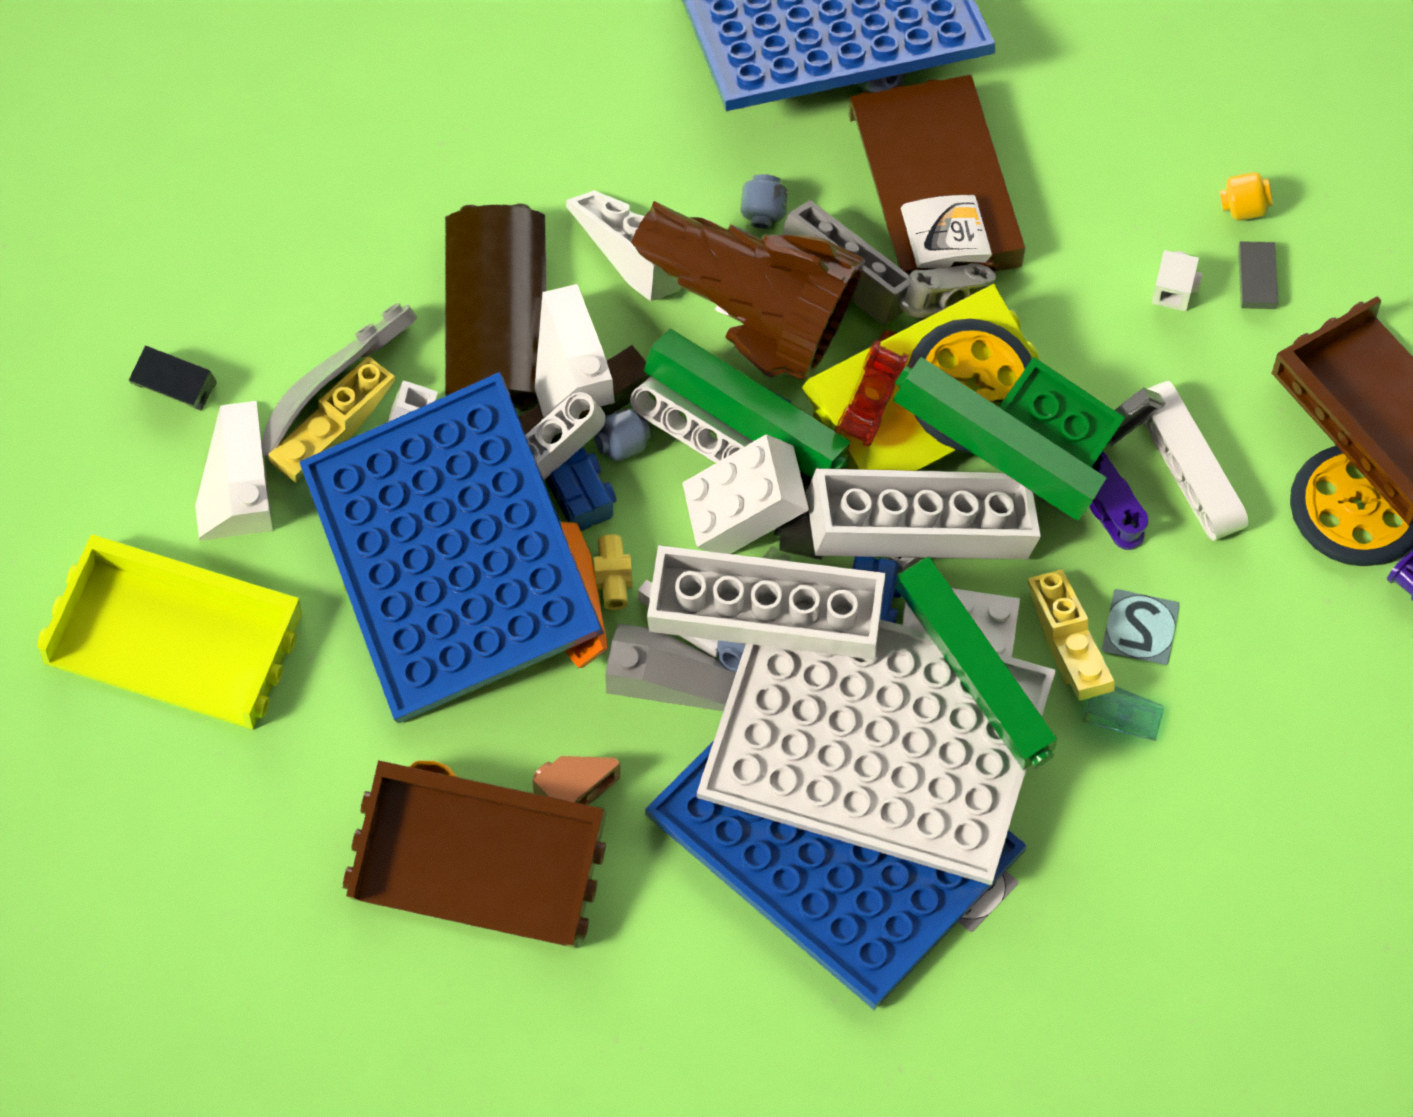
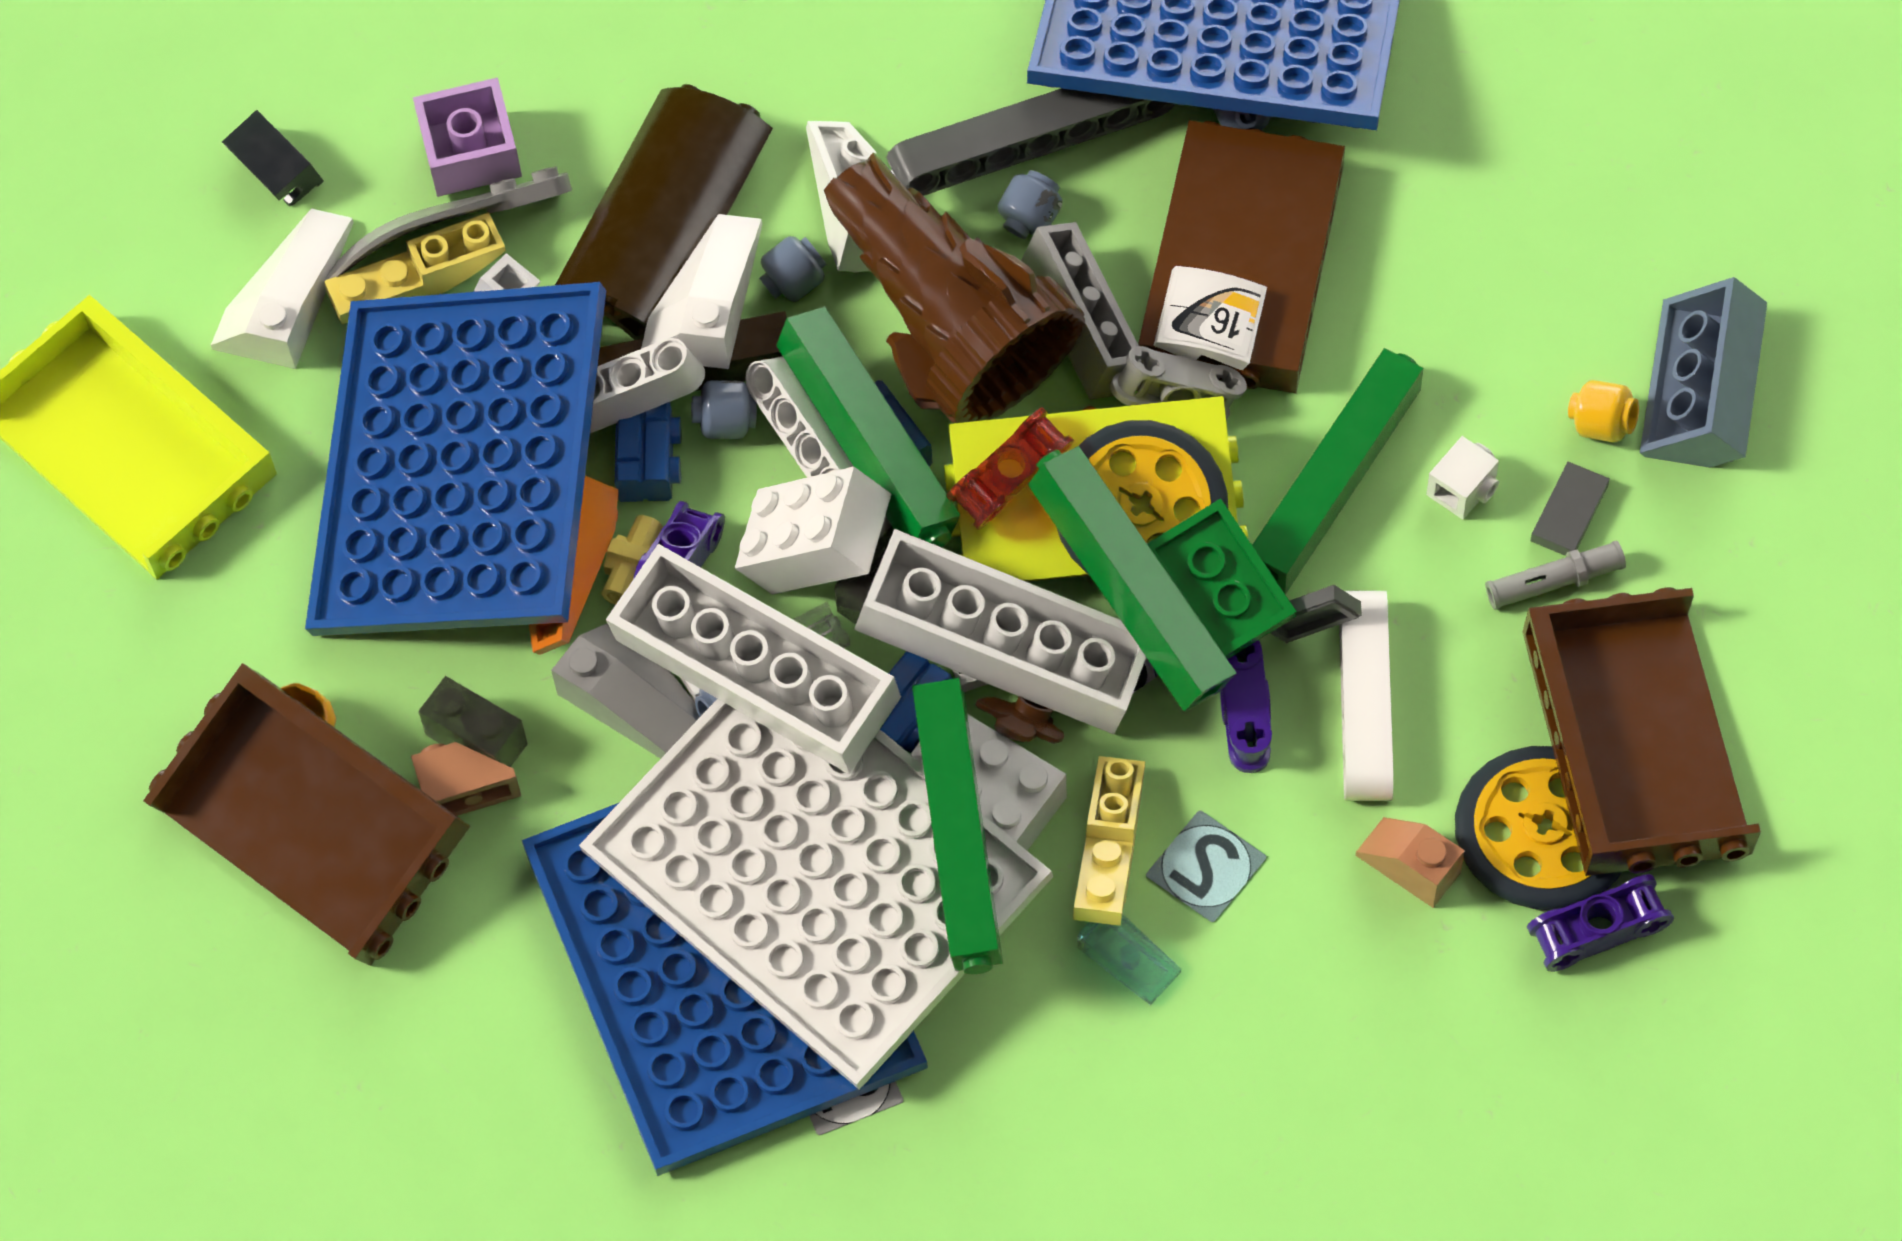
camera: 30 degrees right, 0 degrees up
(318, 306) = (467, 136): none -> lavender brick
(557, 735) = (467, 718): none -> clear smoke brick
(615, 312) = (792, 268): none -> sand blue head
(644, 537) = (689, 535): none -> dark purple piece
(730, 153) = (1014, 136): none -> dark grey beam
(966, 573) = (1021, 719): none -> reddish brown plate
(1085, 298) = (1338, 465): none -> green brick
(1283, 560) = (1413, 857): none -> nougat slope
(1284, 315) = (1573, 569): none -> light grey pin
(1300, 145) = (1704, 375): none -> sand blue slope

